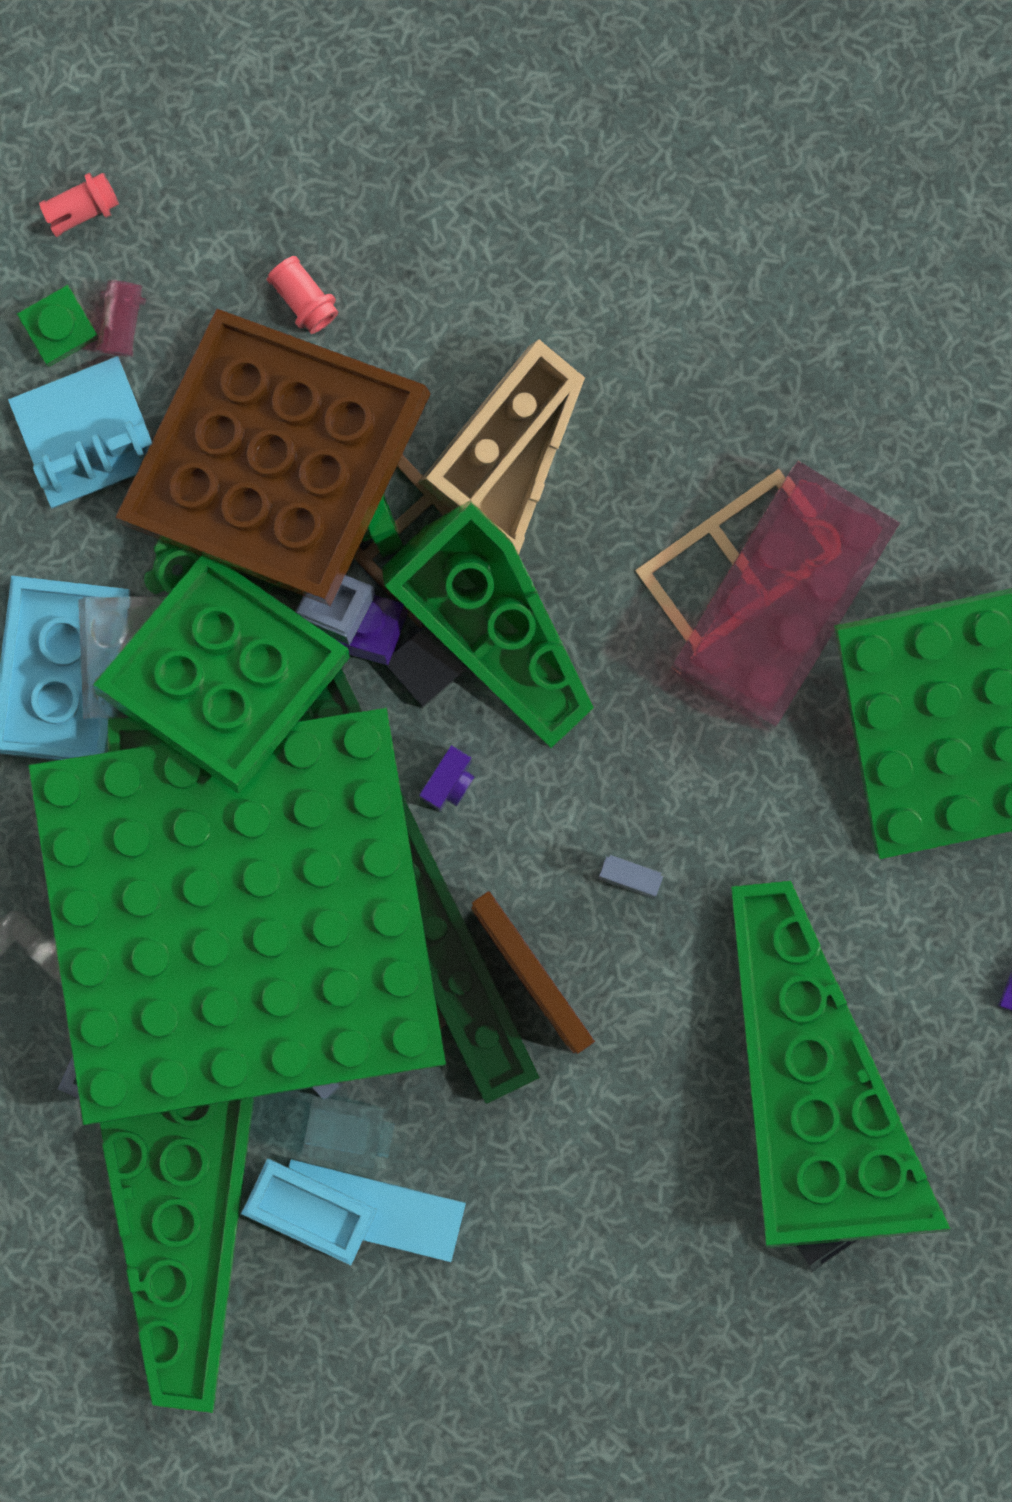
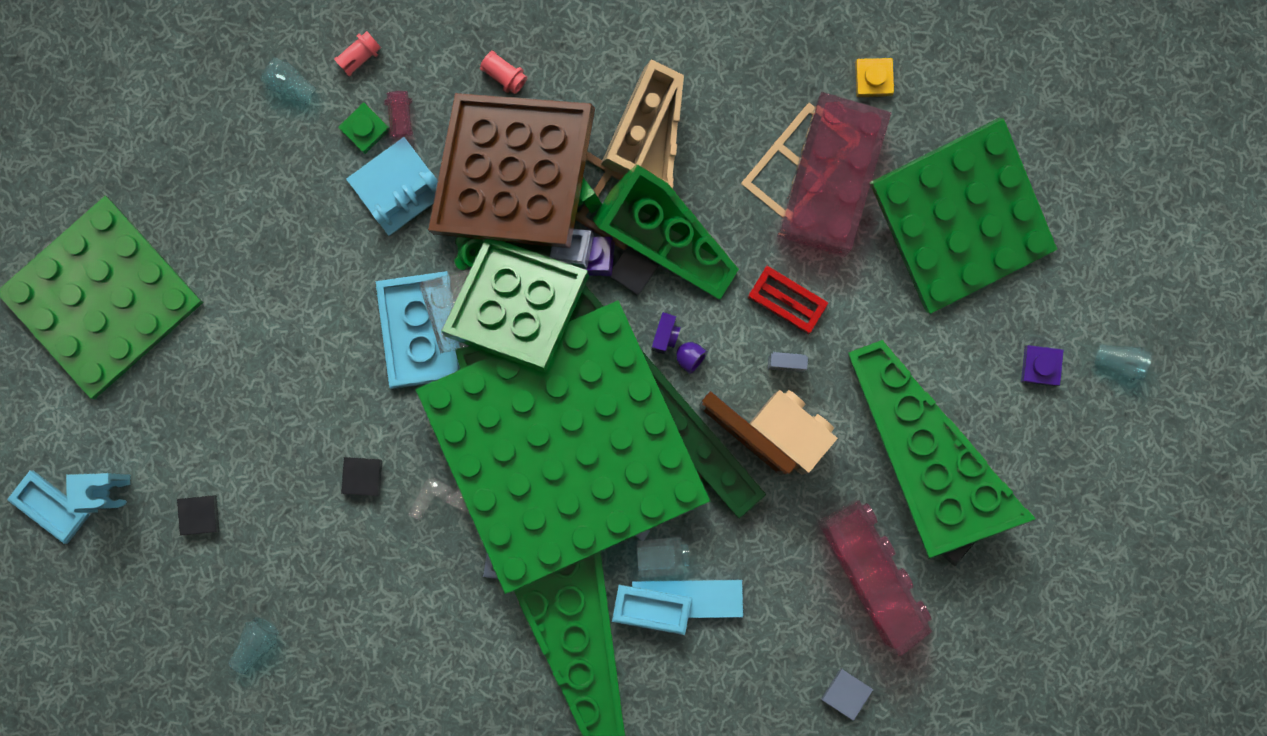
camera: 15 degrees left, 0 degrees up
(479, 826) = (690, 356): none -> dark purple hinge
(584, 1428) = (847, 694): none -> sand blue tile
(606, 988) = (794, 430): none -> tan brick
(624, 741) = (796, 288): none -> red tile
(677, 1253) = (875, 576): none -> clear pink slope
(894, 456) = (874, 77): none -> yellow plate

